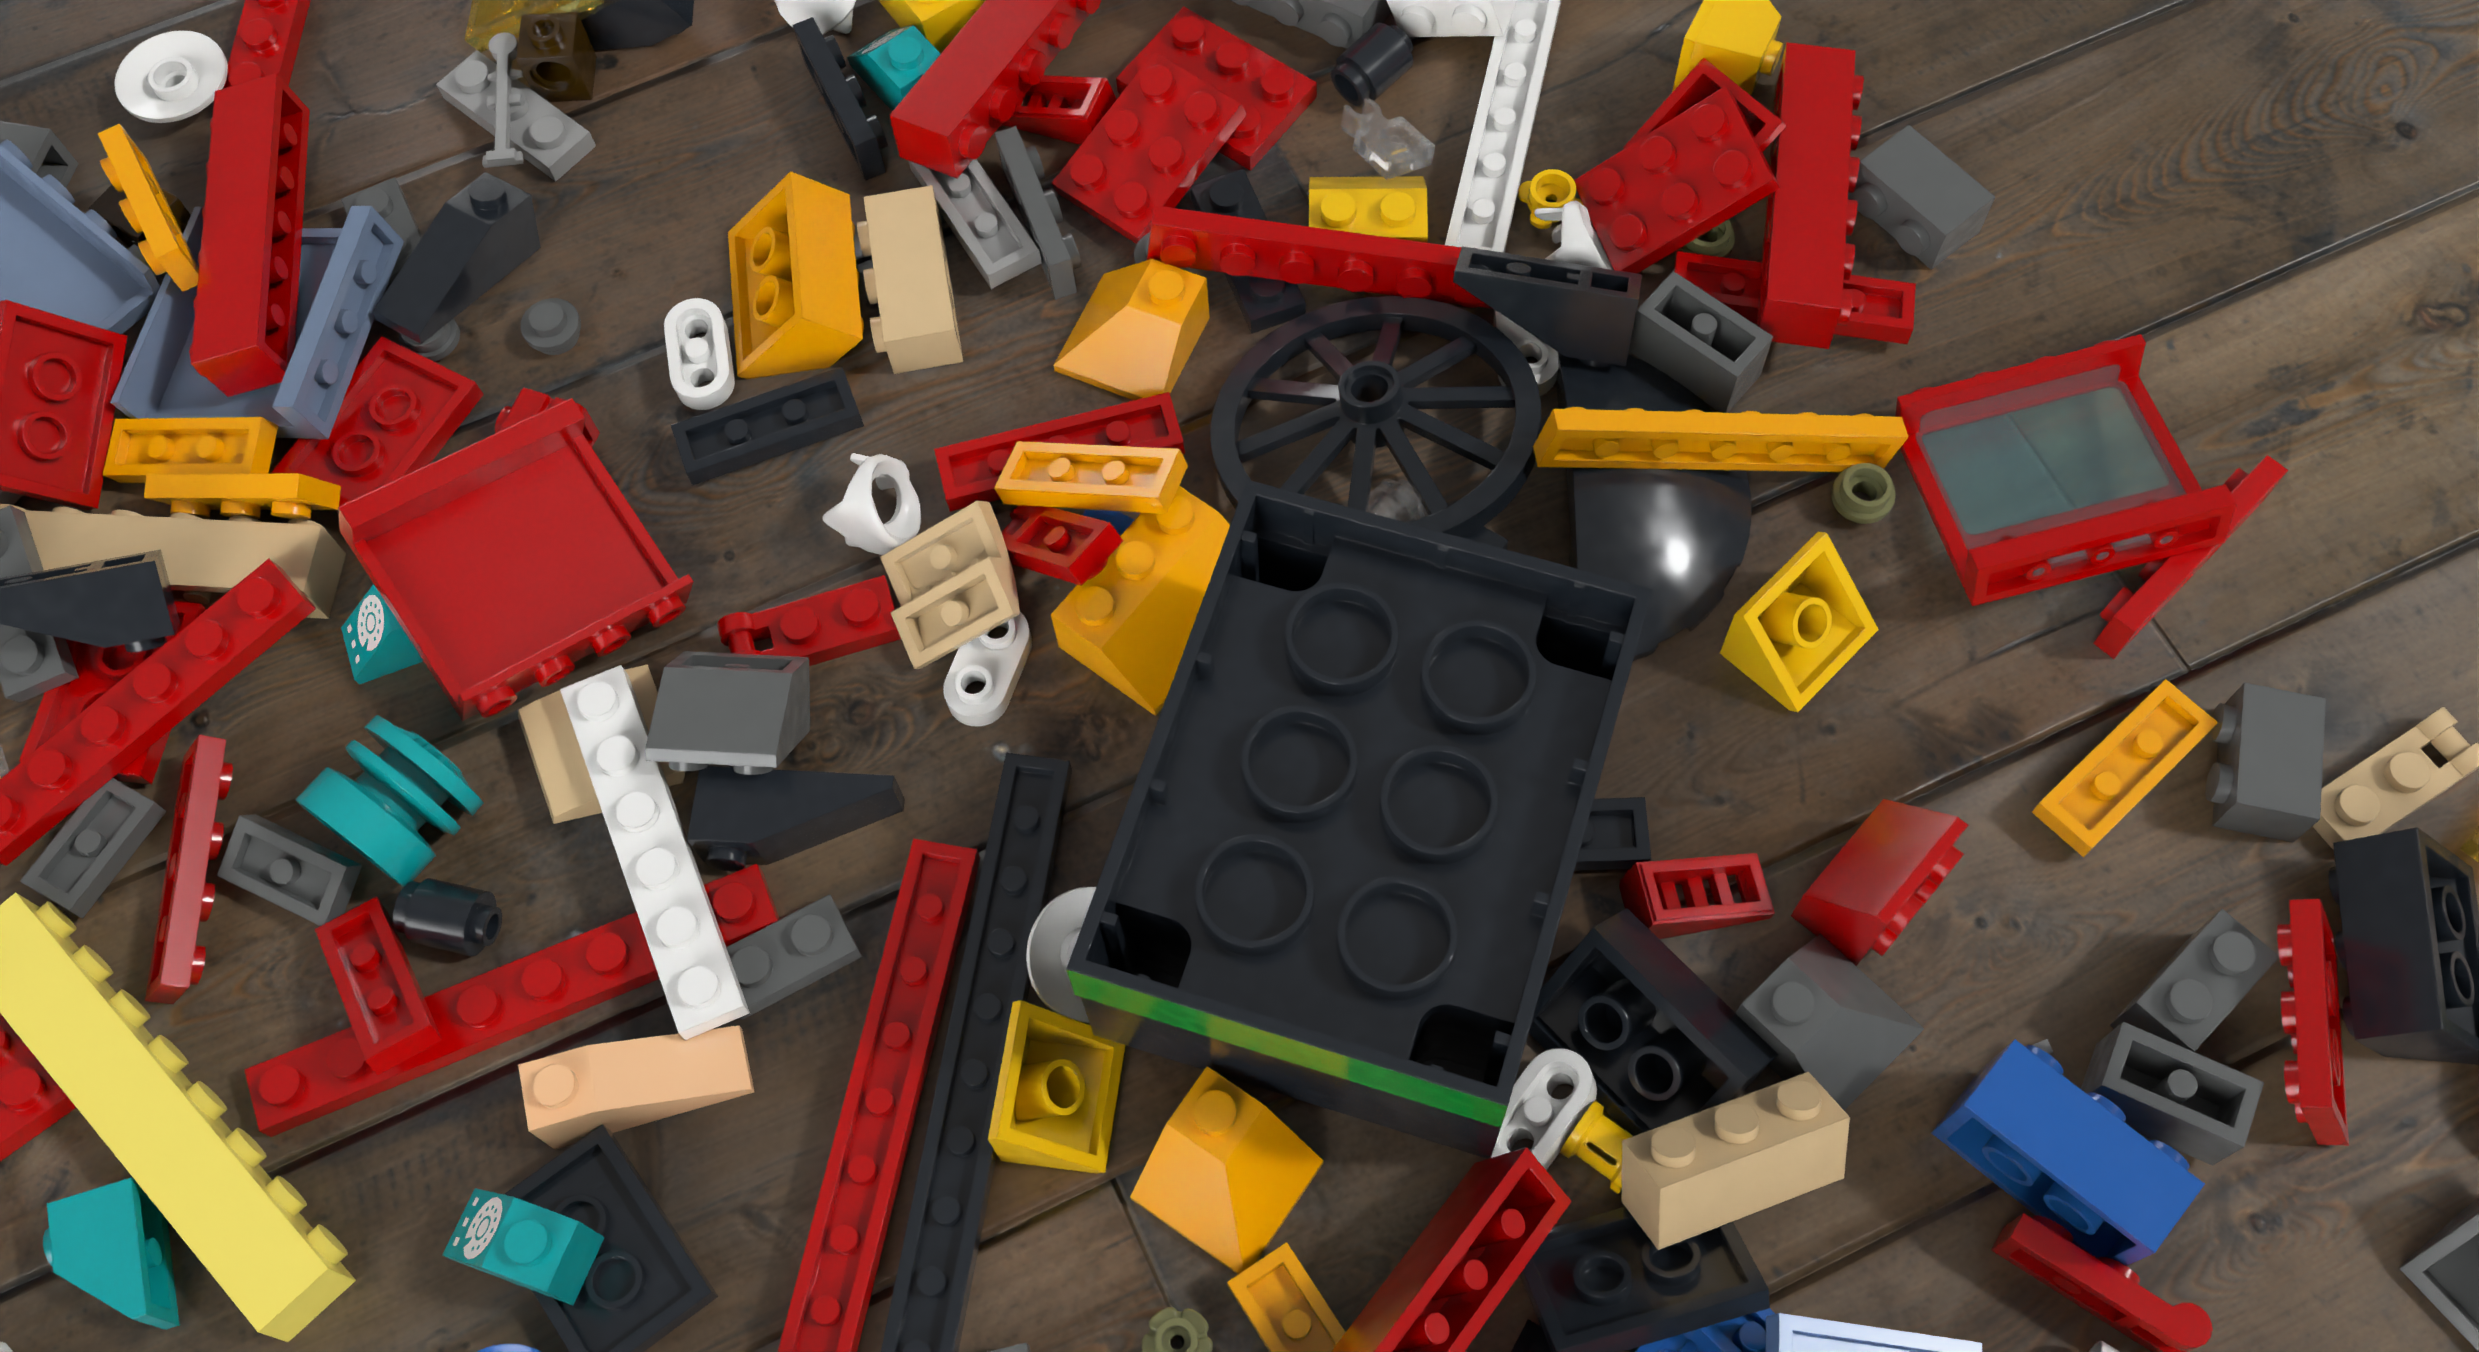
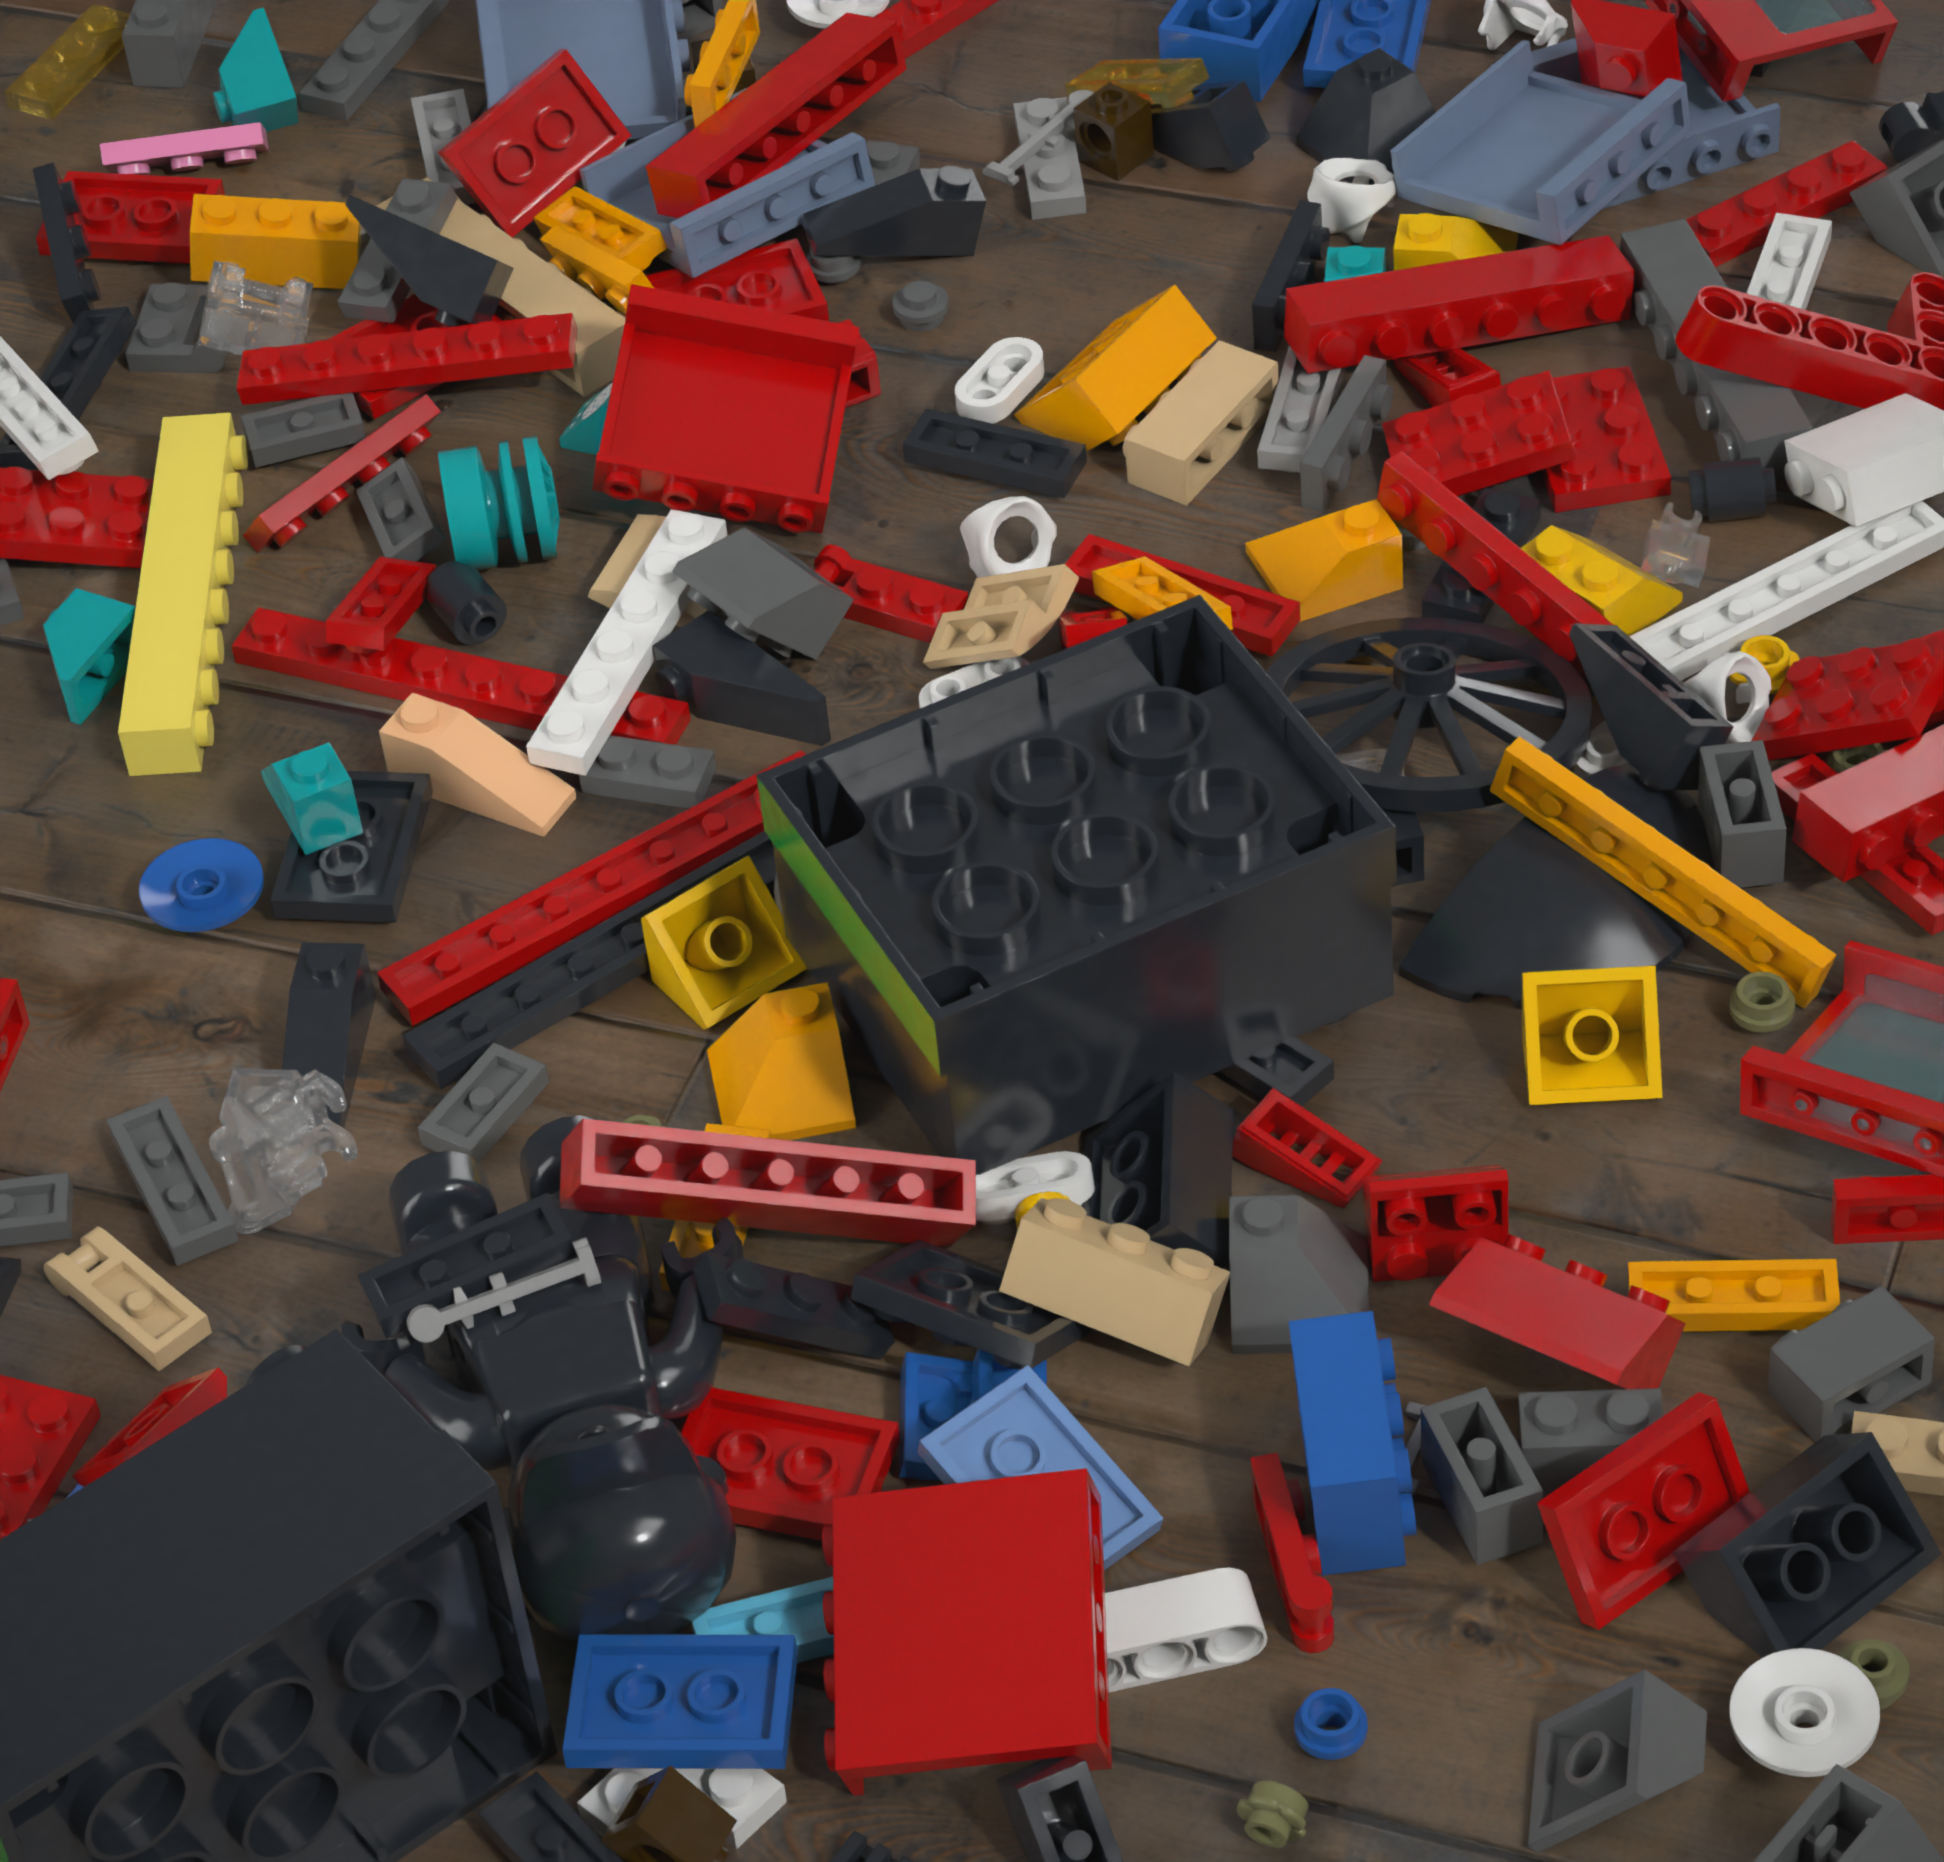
camera: 45 degrees right, 20 degrees down
(2079, 904) = (1562, 1312): none -> red slope

